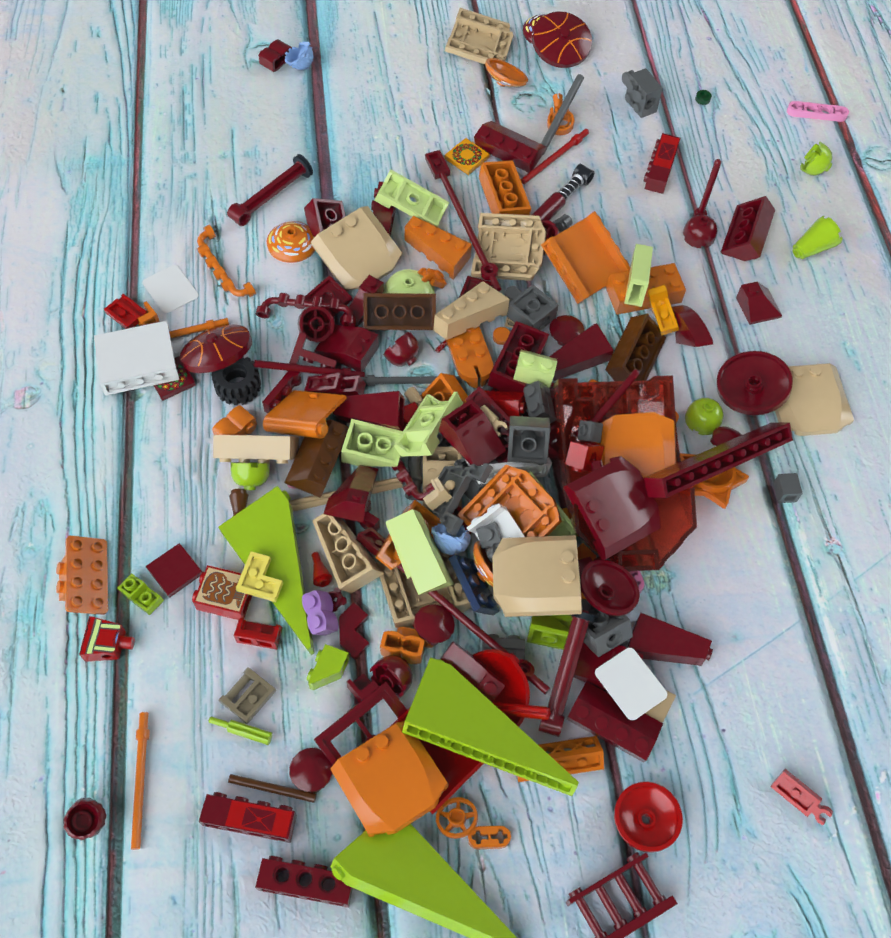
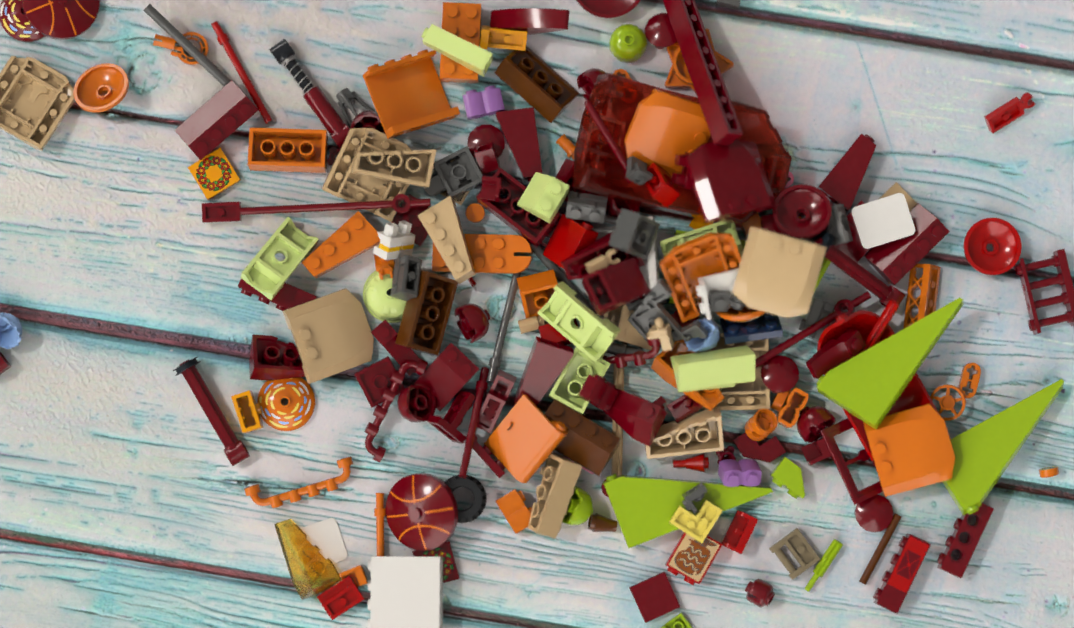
camera: 75 degrees left, 25 degrees up
(154, 279) = (306, 566): none -> clear yellow wedge
(196, 668) = (759, 593): none -> dark red head
(275, 211) = (247, 411): none -> light orange brick
(283, 566) = (695, 493): none -> dark grey bracket
(364, 455) = (598, 392): none -> dark red brick
(376, 620) = (761, 424): none -> orange wheel
(424, 284) = (406, 278): none -> dark grey brick
(453, 275) = (395, 241): none -> white hips
(522, 261) = (399, 166): none -> tan wedge
(527, 327) = (491, 189): none -> dark red panel
(554, 326) = (486, 158): none -> dark red panel
(600, 313) = (483, 103): none -> medium lavender brick

